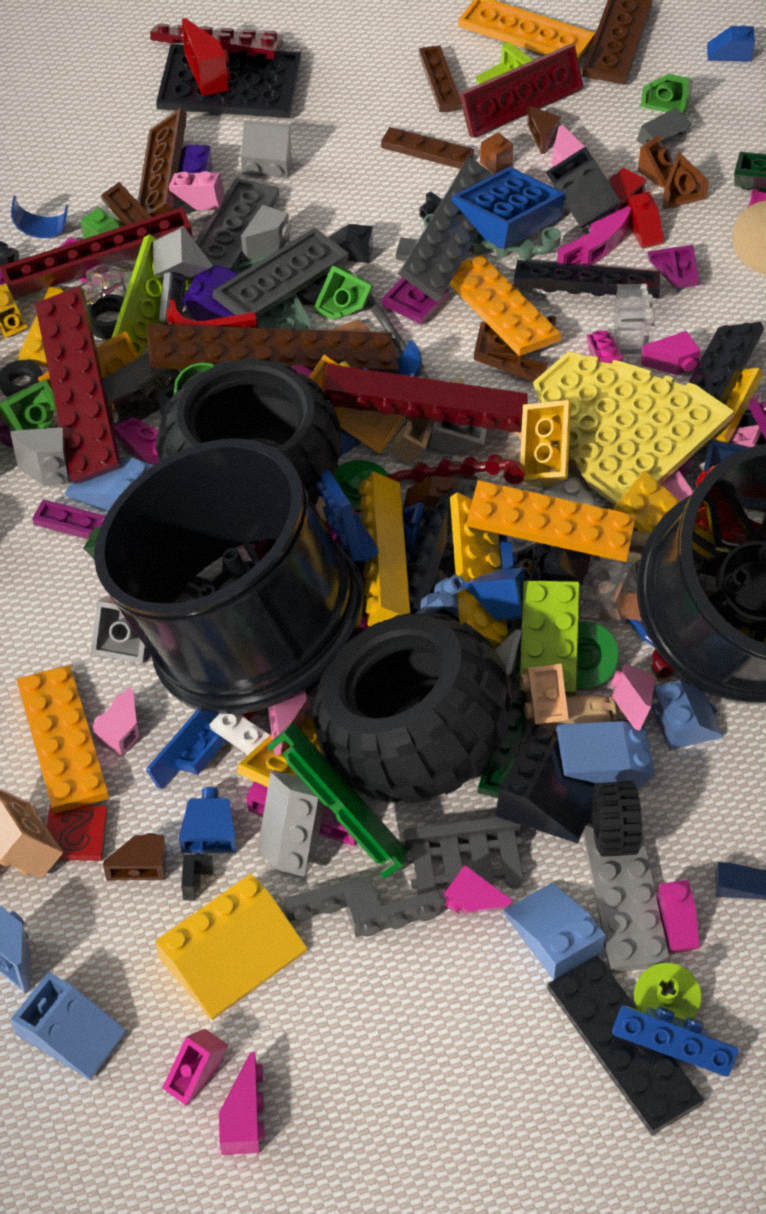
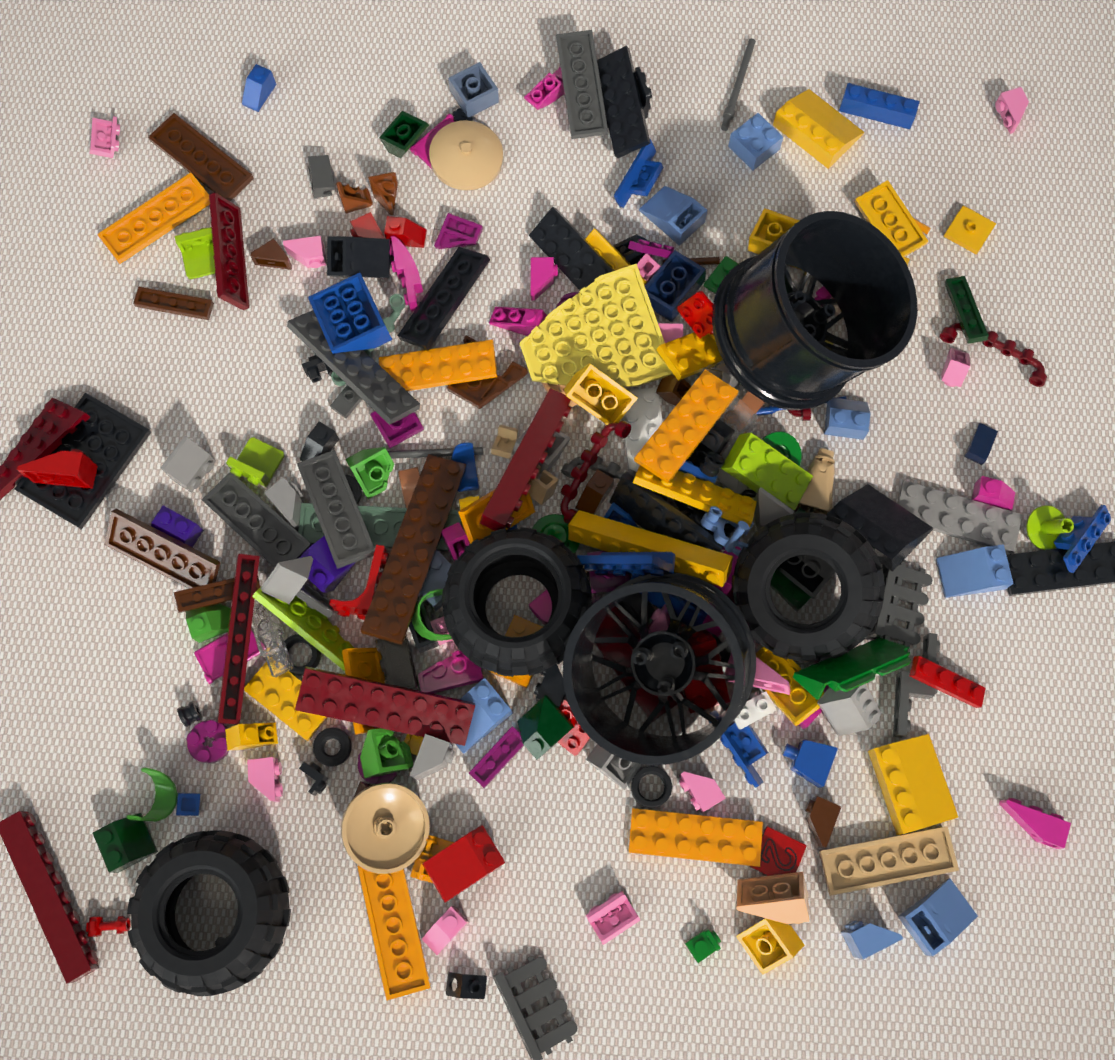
camera: 65 degrees left, 20 degrees up
(37, 225) = (167, 669): blue piece -> none
(106, 690) = (666, 781): none -> black tyre
(120, 952) = (888, 861): none -> tan plate
(192, 869) = (848, 789): black bracket -> none
(194, 1065) = (995, 841): dark pink slope -> none
(199, 190) = (210, 534): bright pink slope -> none
(302, 205) = (256, 462): none -> lime bracket
(381, 933) = (947, 681): none -> red plate
(426, 147) = (243, 346): reddish brown plate -> none
(473, 894) = (936, 611): dark pink slope -> none
(496, 153) = (281, 300): dark orange brick -> none
(499, 593) = (728, 486): blue slope -> none
(545, 694) = (814, 496): light nougat bracket -> none
(605, 752) = (867, 479): medium blue slope -> none
(616, 818) = (931, 497): black tyre -> none
(633, 318) = (502, 285): clear brick -> none
(633, 693) = (831, 440): bright pink slope -> none
(667, 93) = (288, 153): bright green slope -> none

